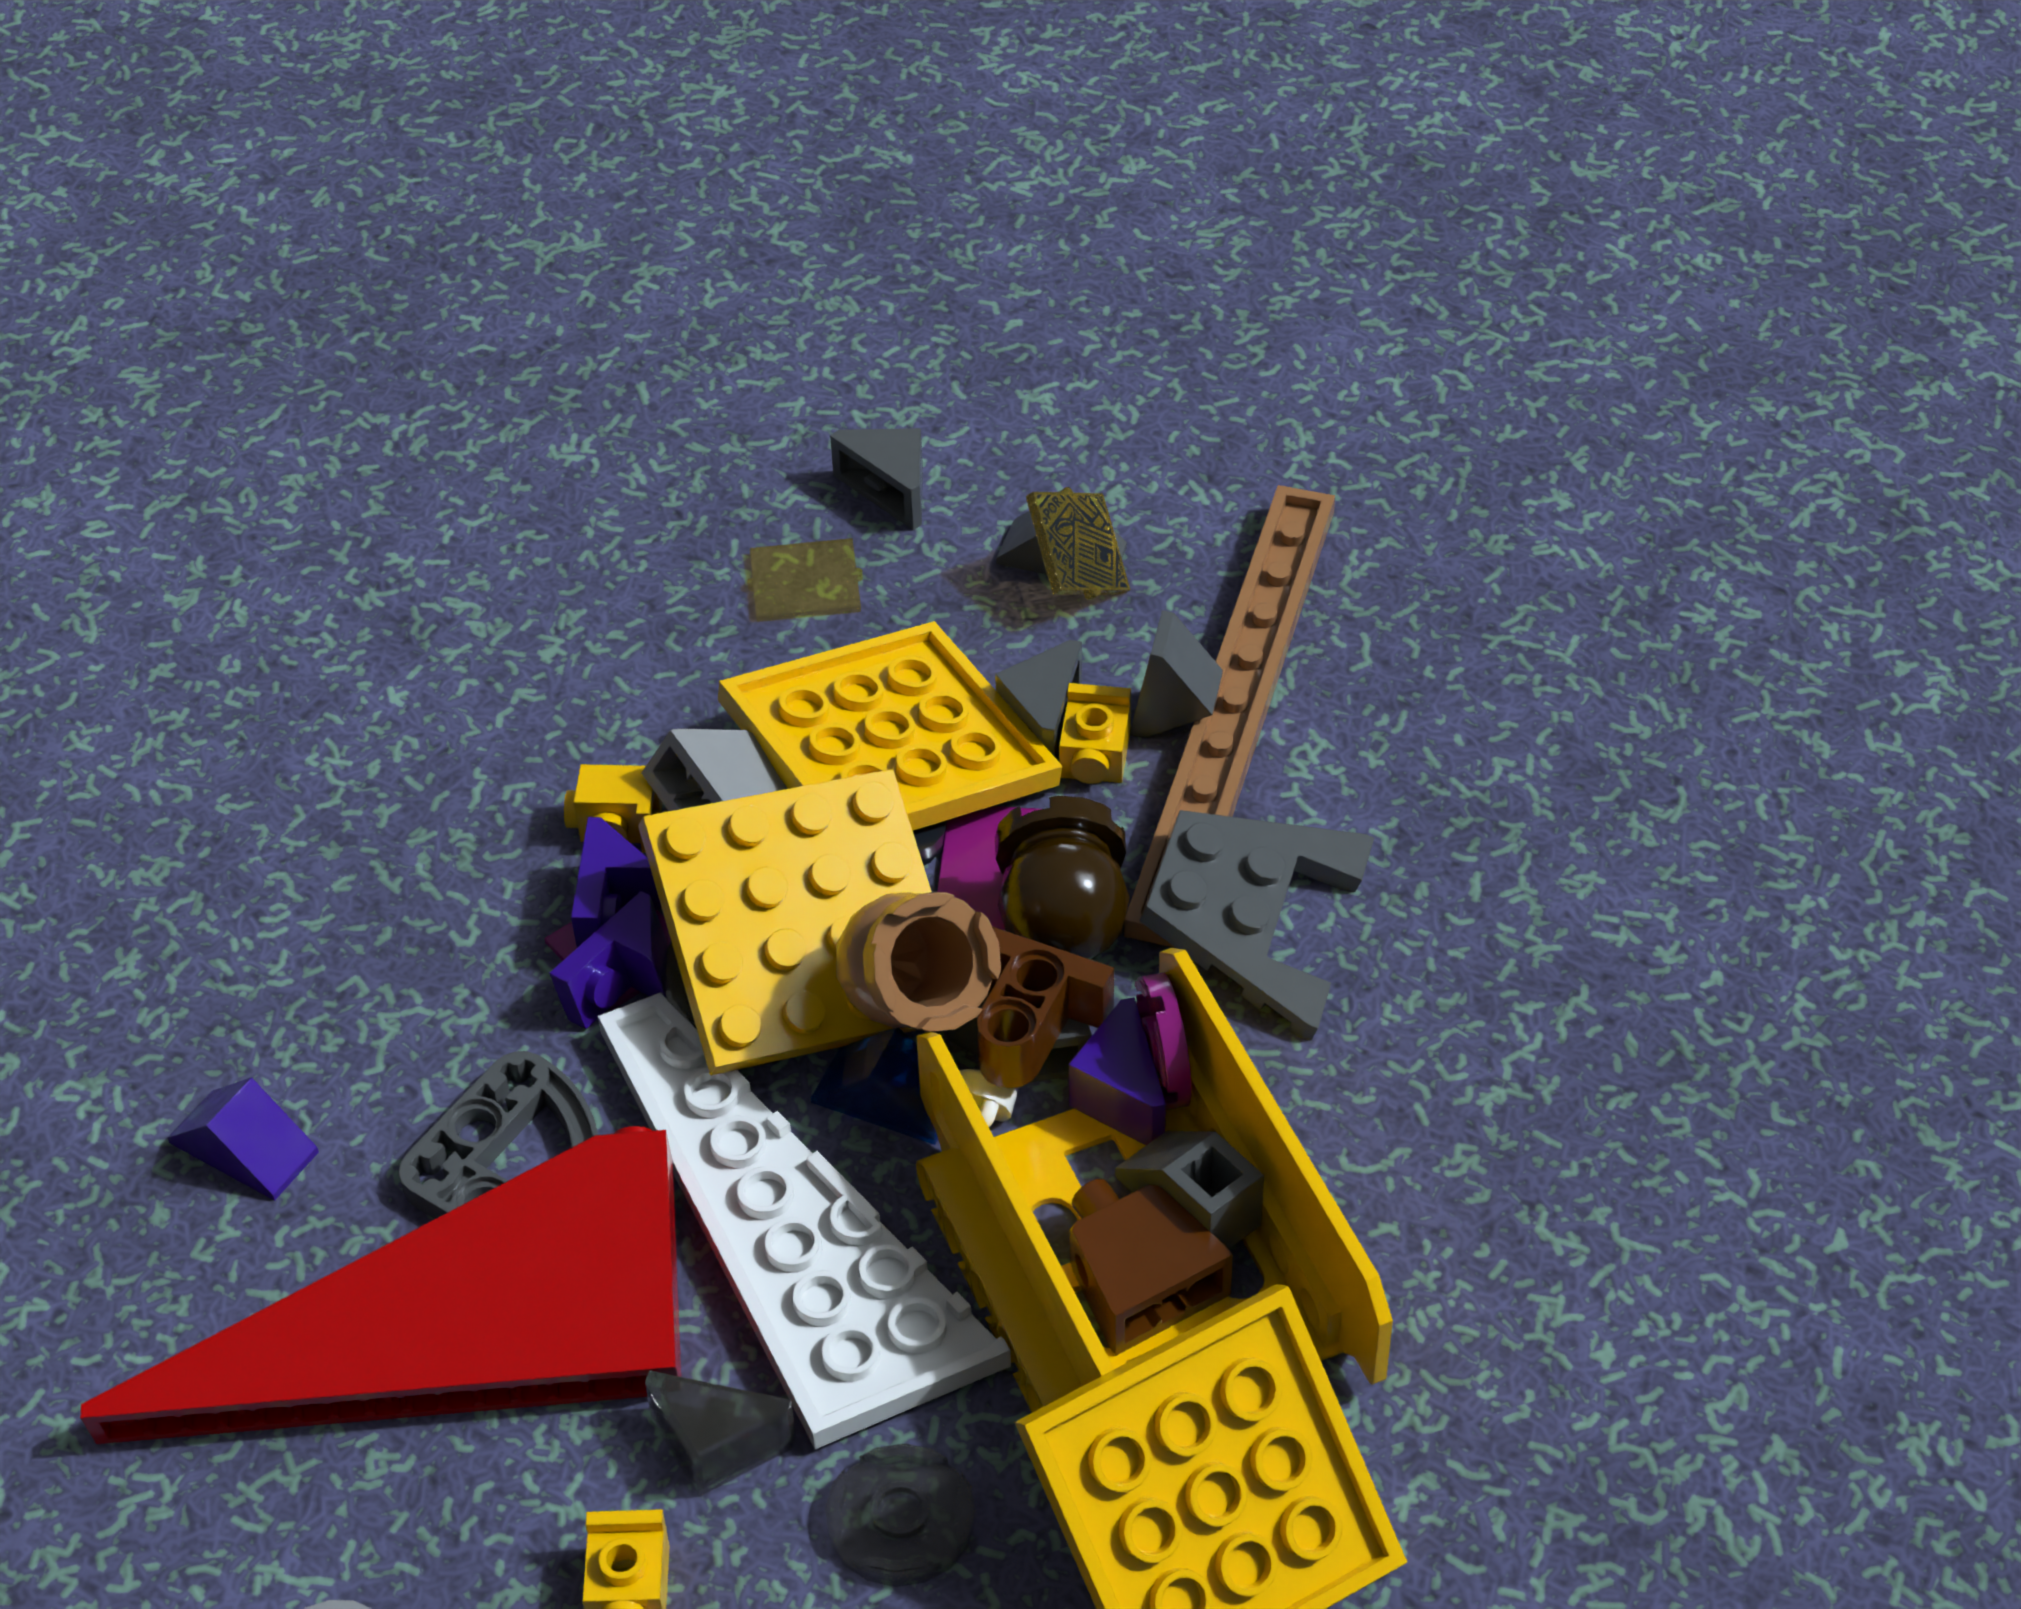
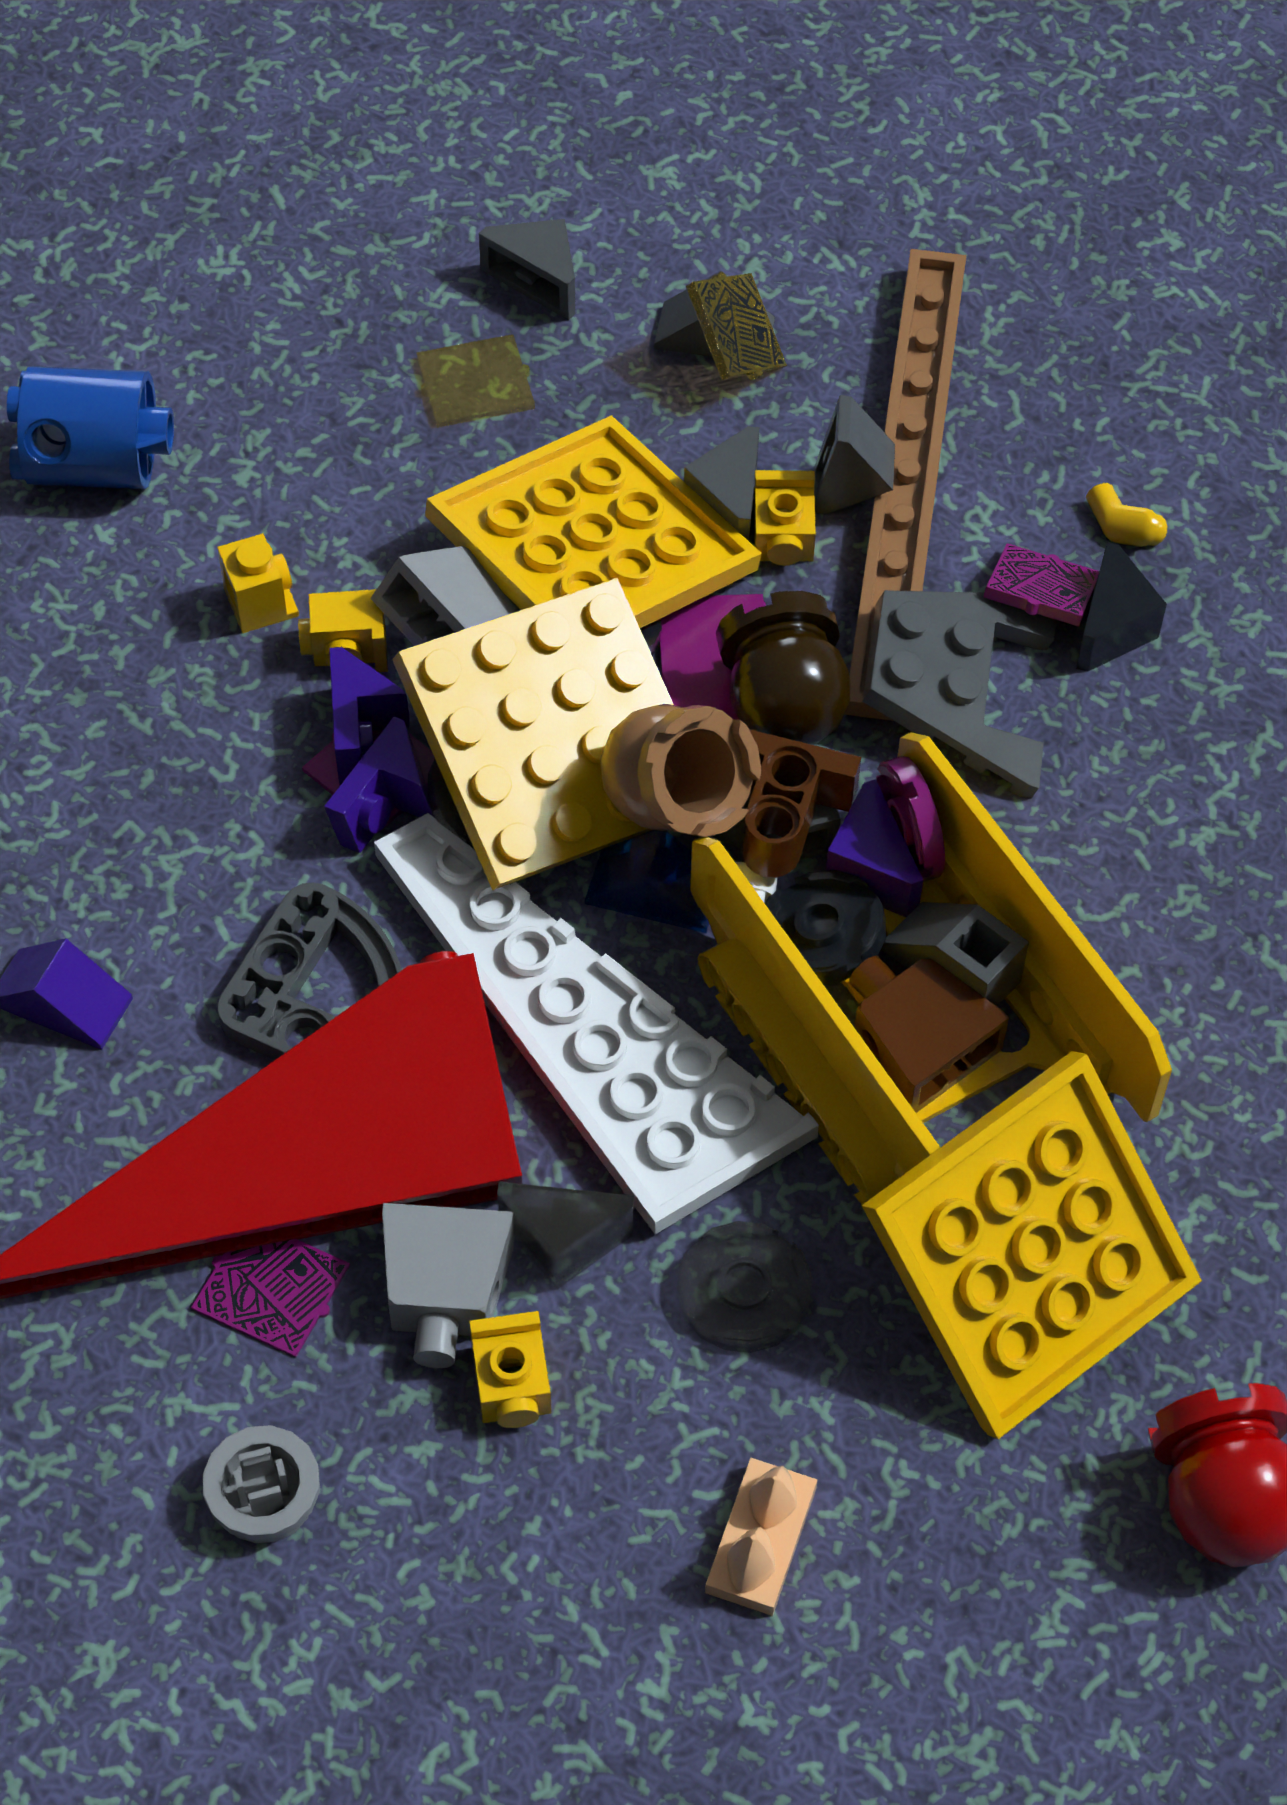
camera: 10 degrees left, 10 degrees up
(392, 588) = (87, 427): none -> blue cylinder
(395, 1466) = (272, 1291): none -> magenta piece
(534, 752) = (256, 583): none -> yellow brick
(575, 1457) = (443, 1272): none -> light grey torso
(1059, 1144) = (831, 922): none -> black tile
(1357, 823) = (1042, 584): none -> magenta piece
(1435, 859) = (1122, 613): none -> black slope
(1460, 771) = (1125, 523): none -> yellow arm

